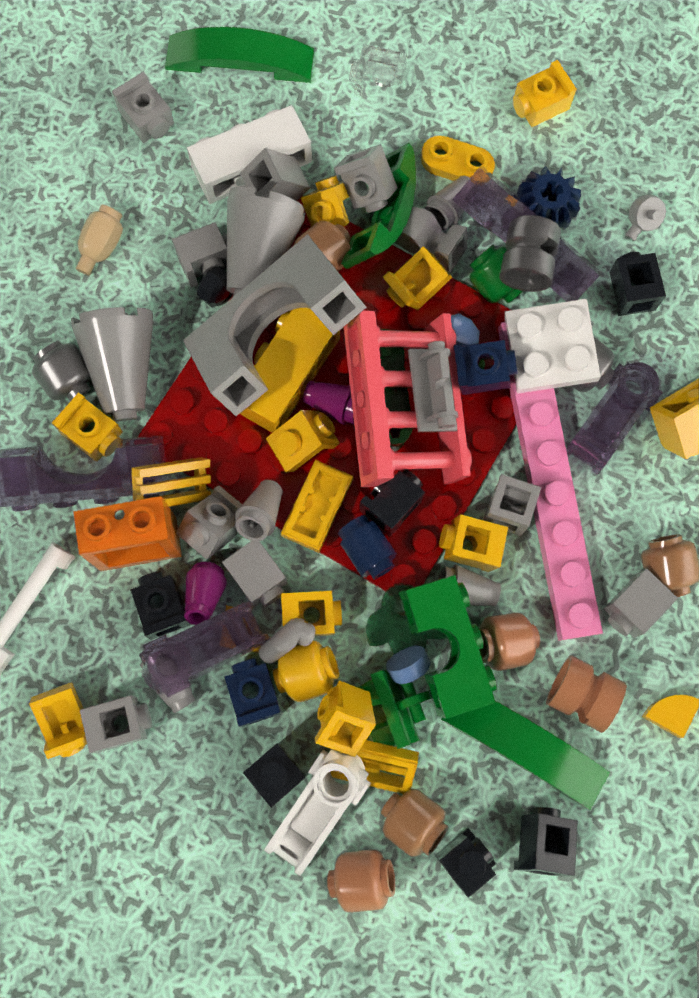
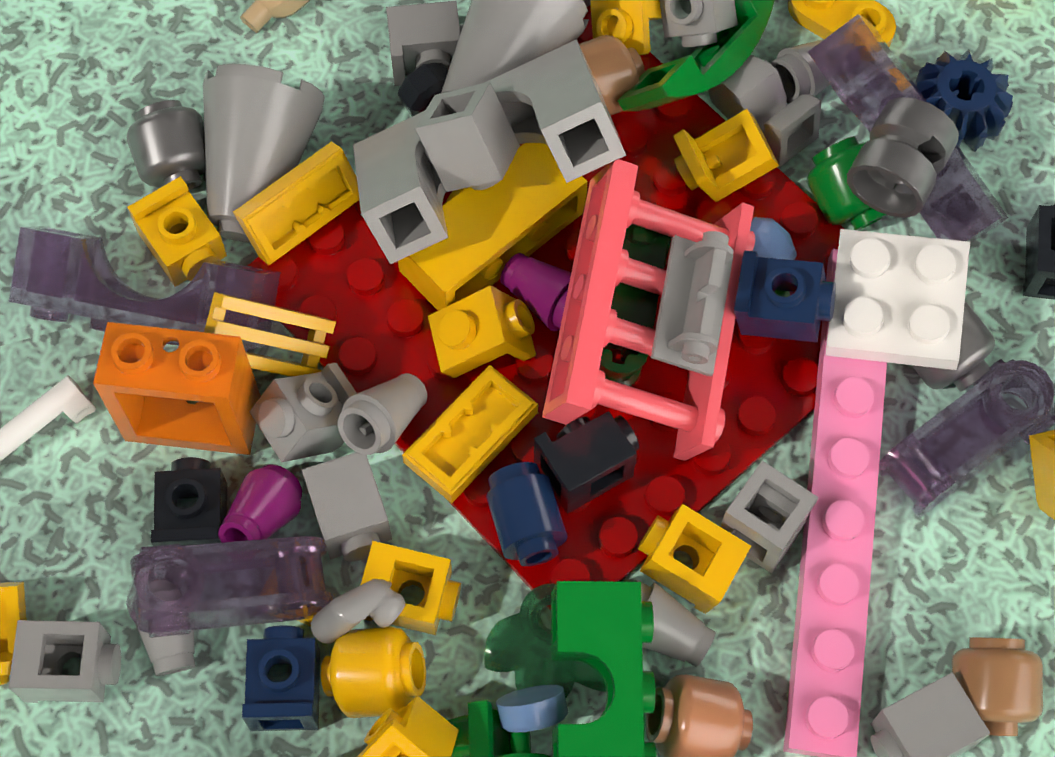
camera: 20 degrees right, 10 degrees down
(160, 387) = (299, 203): none -> yellow plate
(259, 319) = (468, 137): none -> light grey brick

